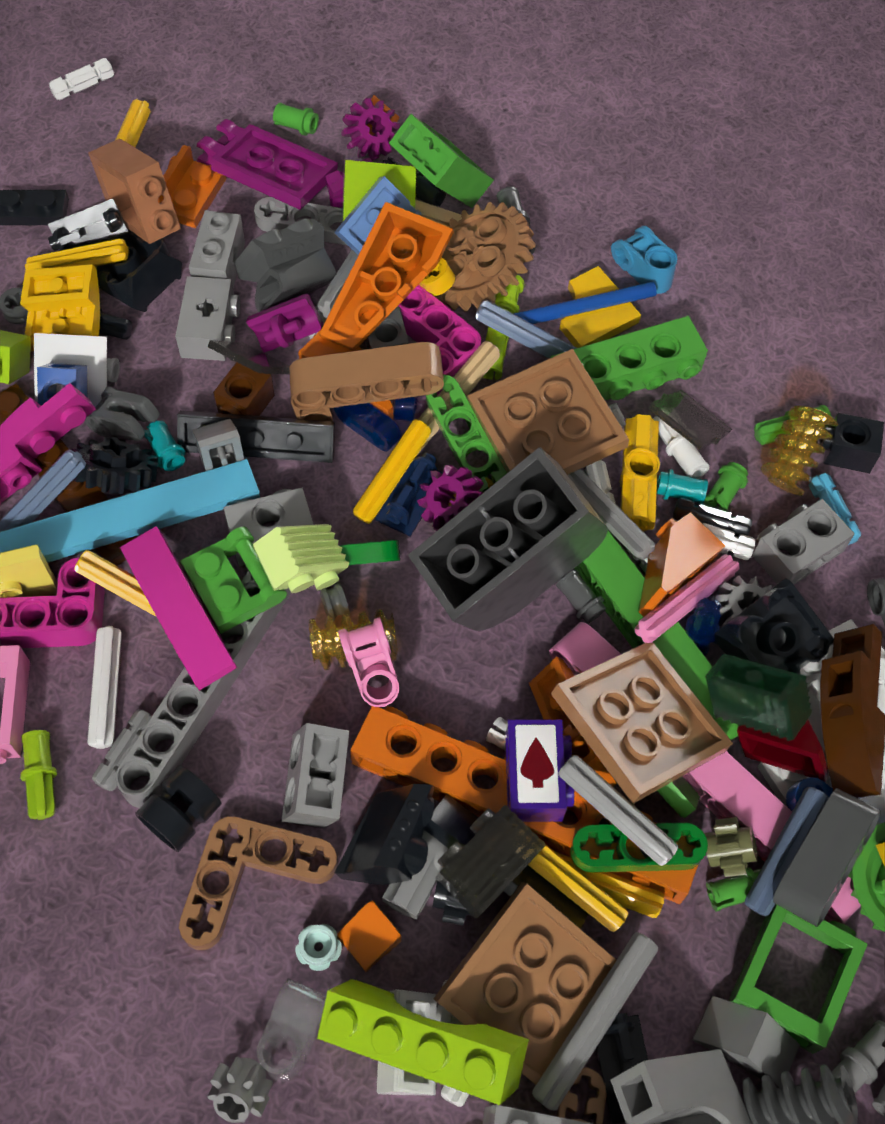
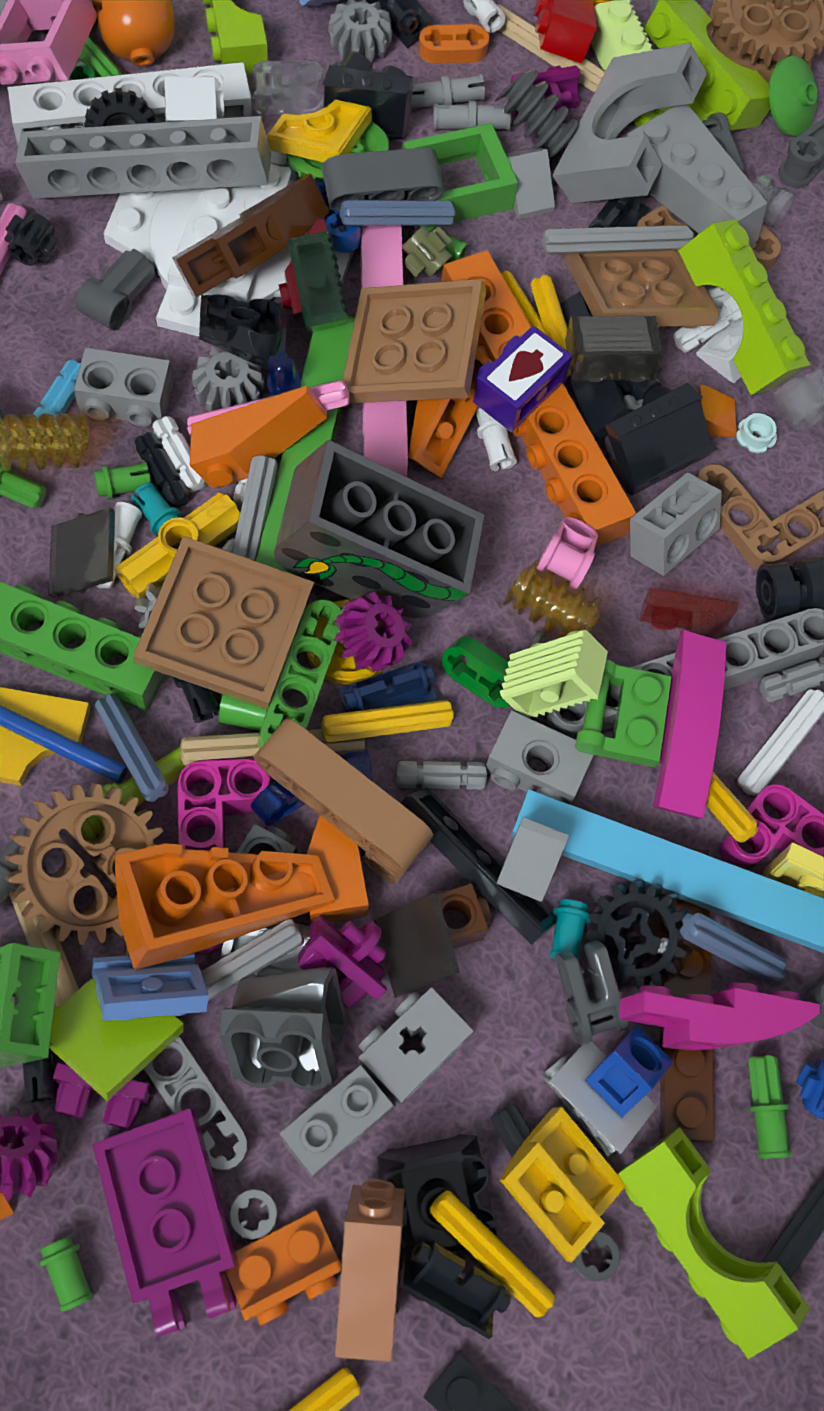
camera: 145 degrees left, 5 degrees up
(228, 191) = (241, 1203): none -> light grey bush
(240, 723) = (688, 611): none -> clear red slope
(331, 474) = (441, 775): none -> light grey axle
(604, 838) = (503, 306): green beam -> none
(618, 810) = (499, 298): light grey axle -> none

